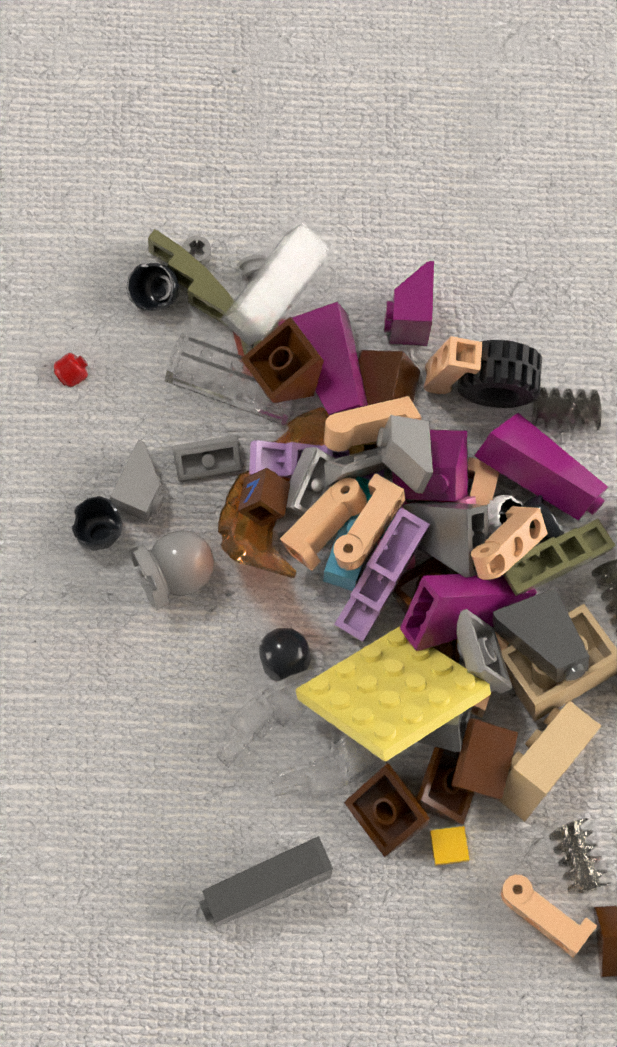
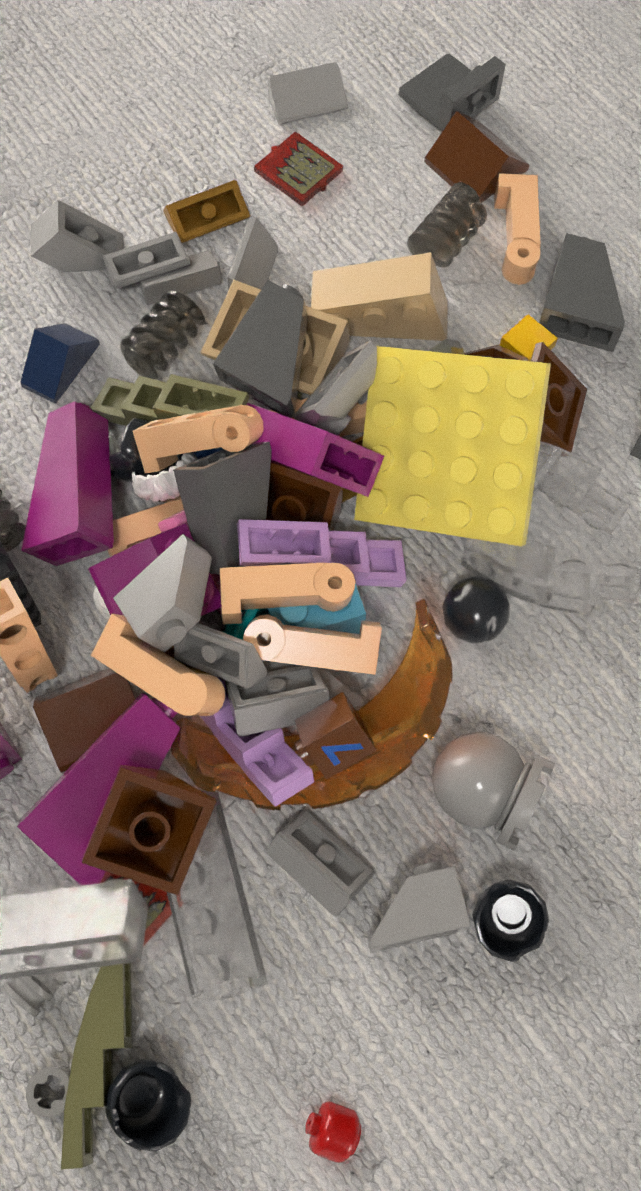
camera: 125 degrees left, 5 degrees down
(458, 909) = (584, 296): none -> dark grey slope
(484, 759) = (433, 323): reddish brown slope -> none

